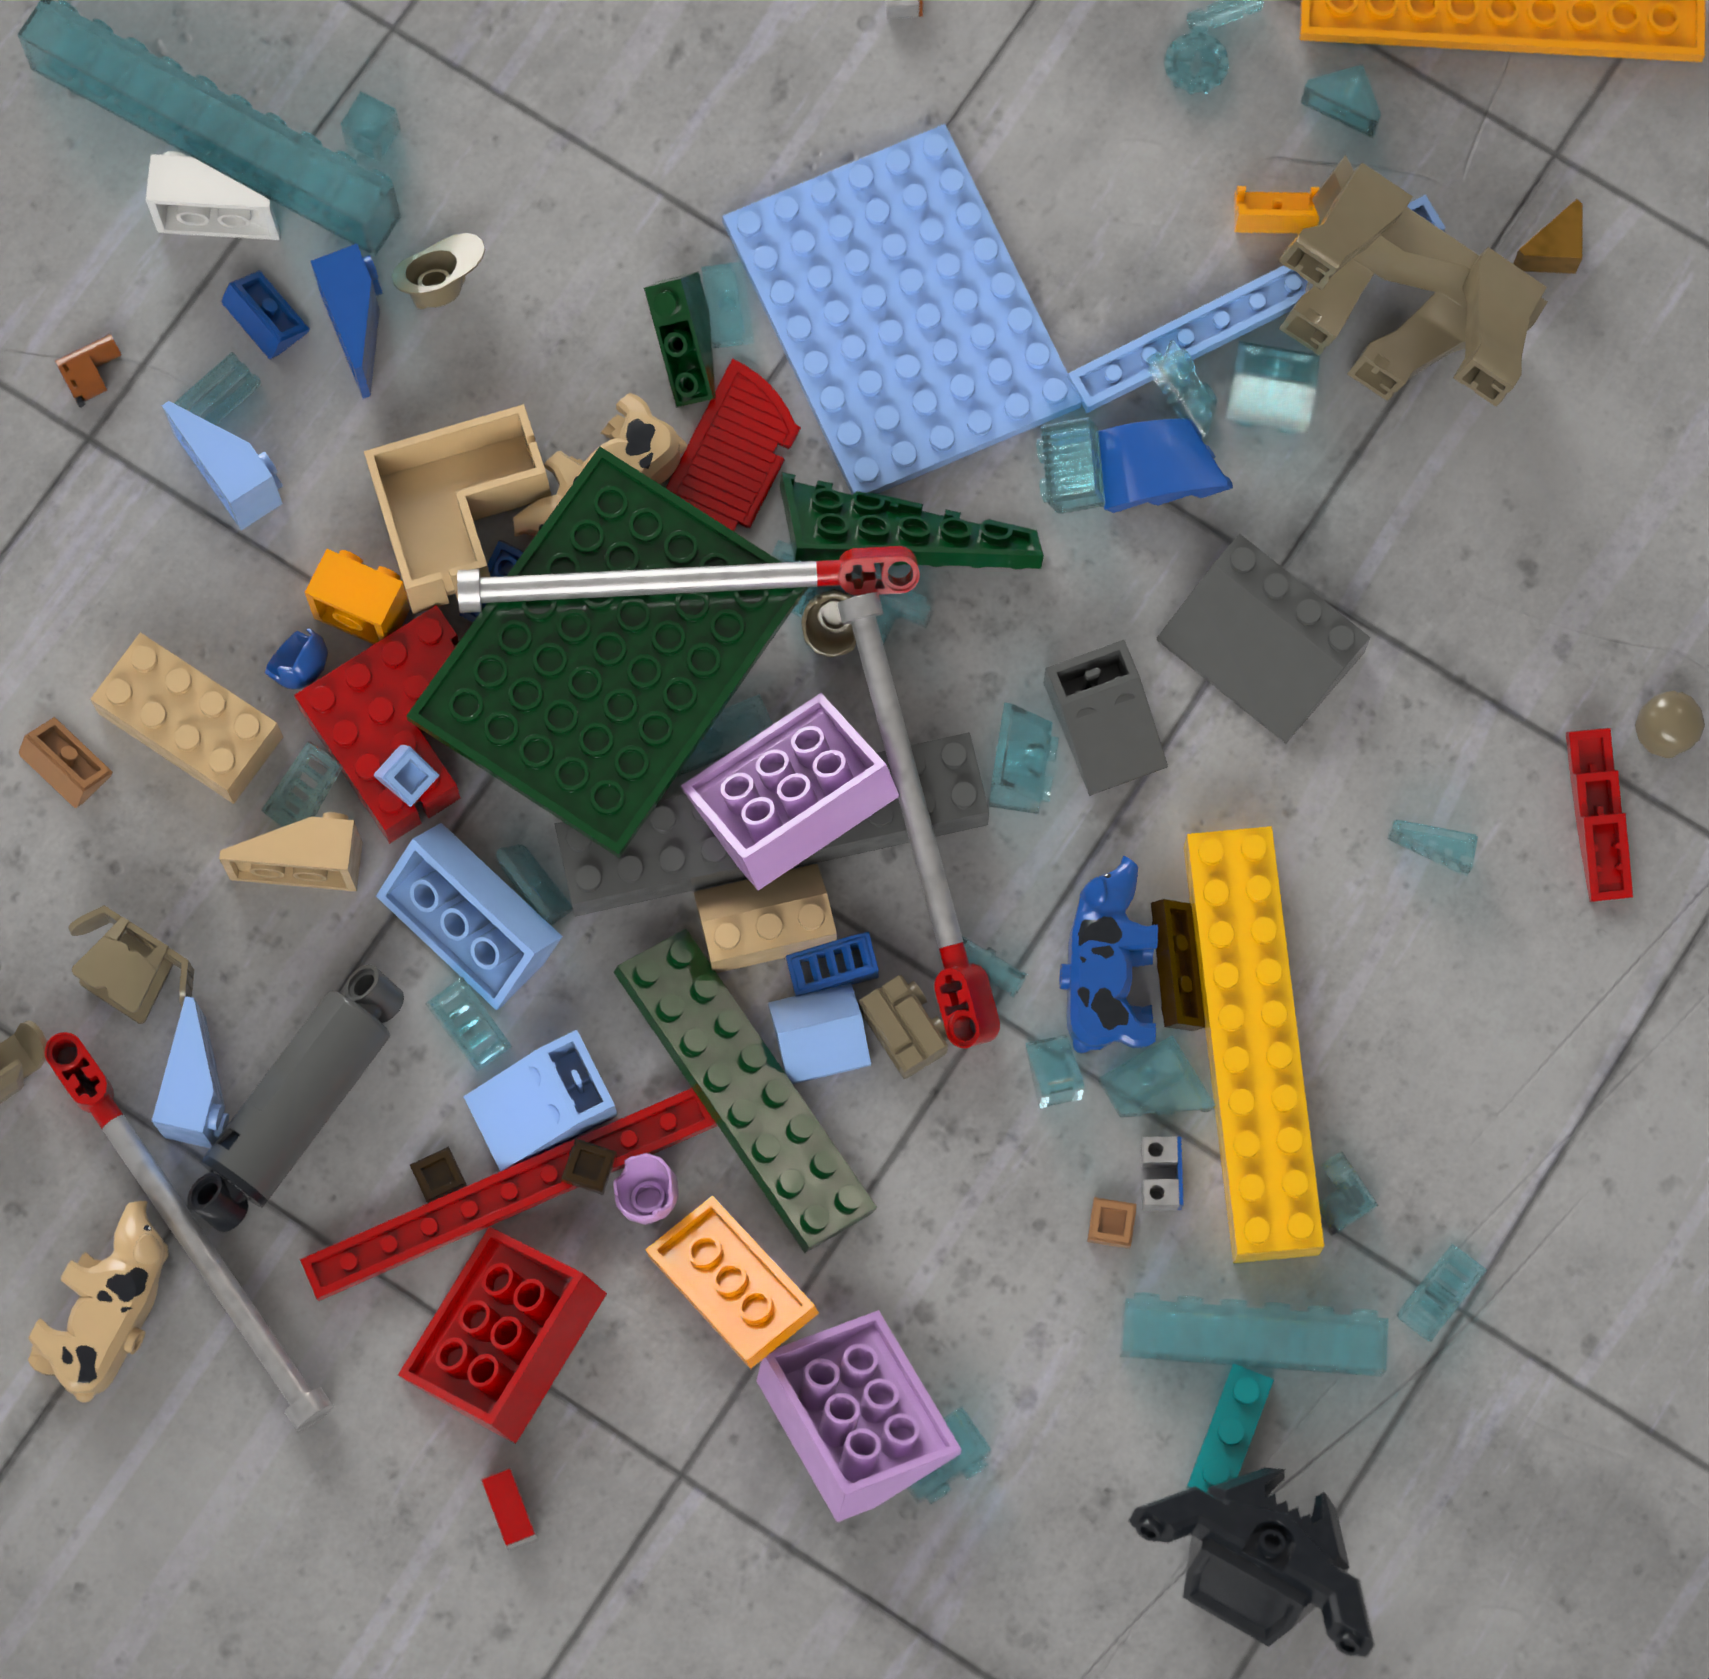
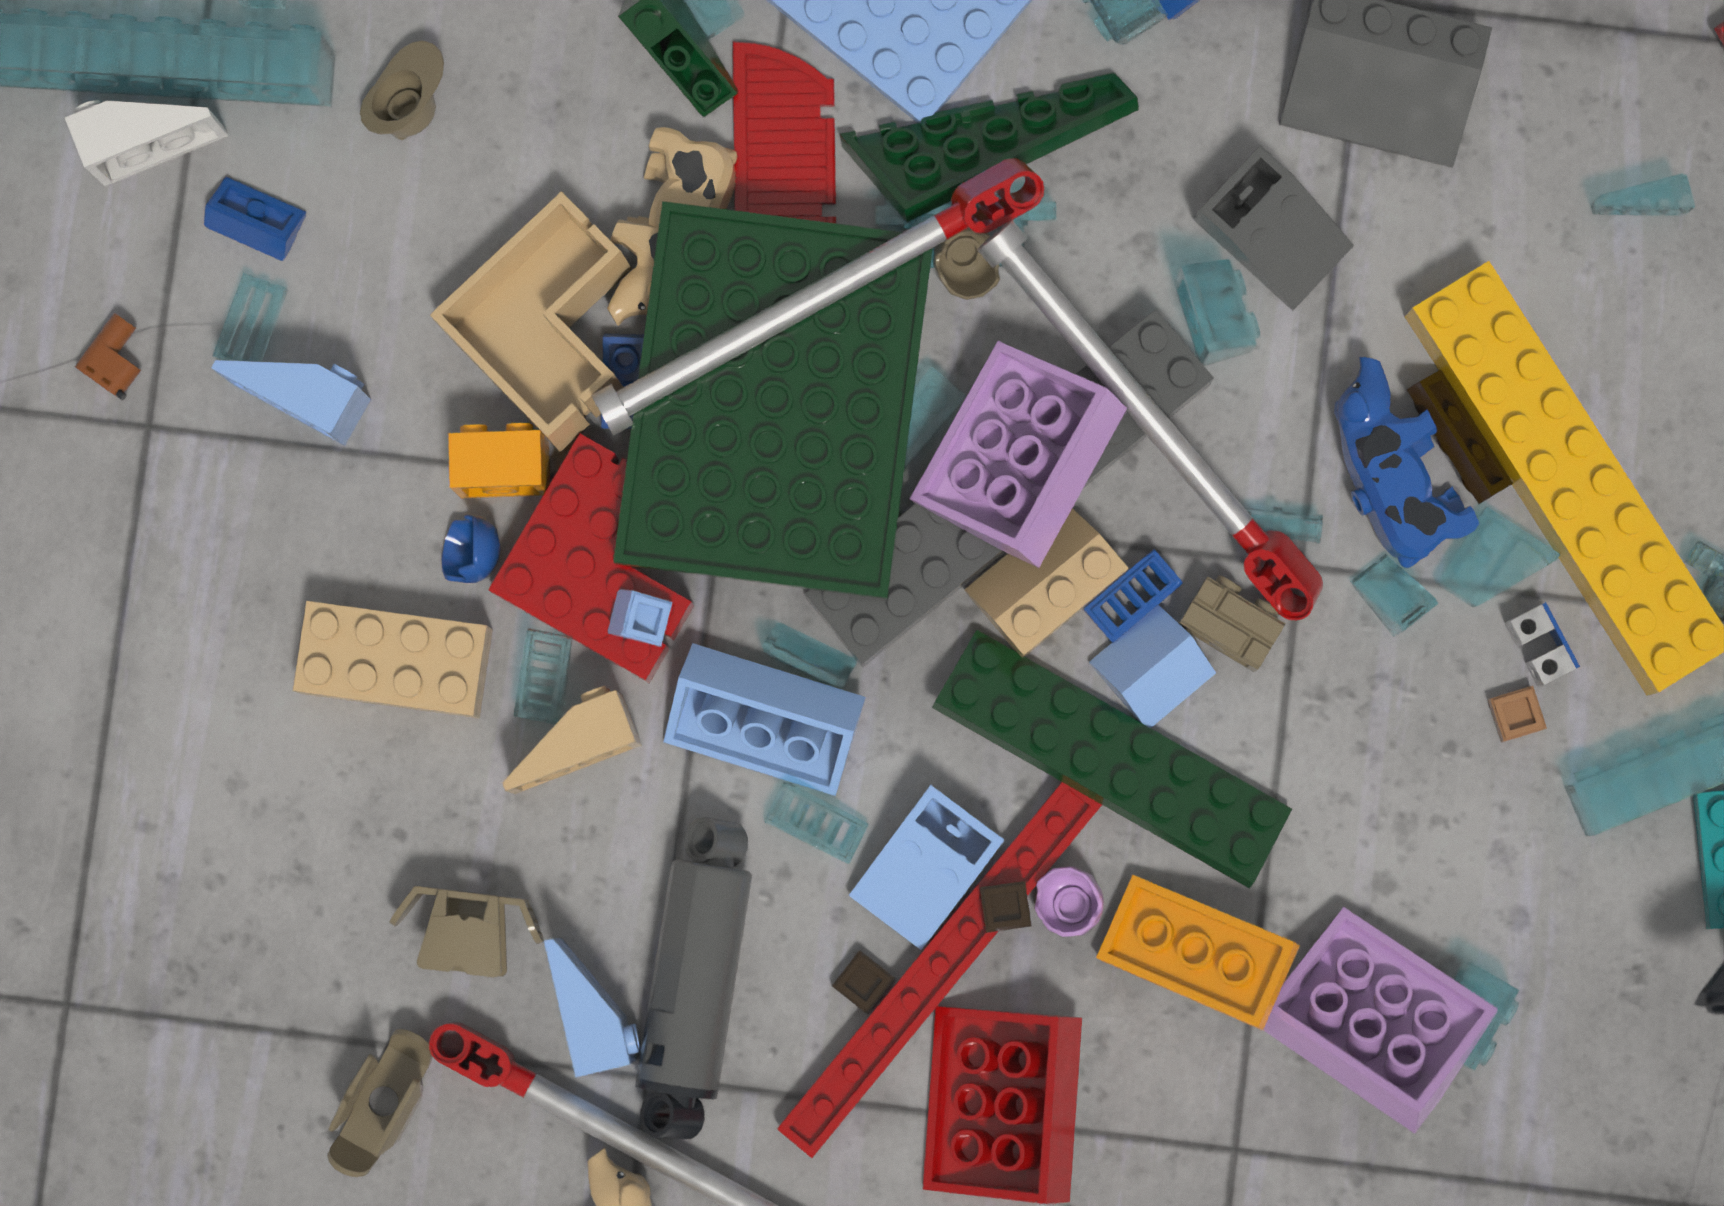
camera: 20 degrees left, 10 degrees up
(64, 762) = (295, 758): medium nougat slope -> none
(349, 294) = (329, 160): blue slope -> none

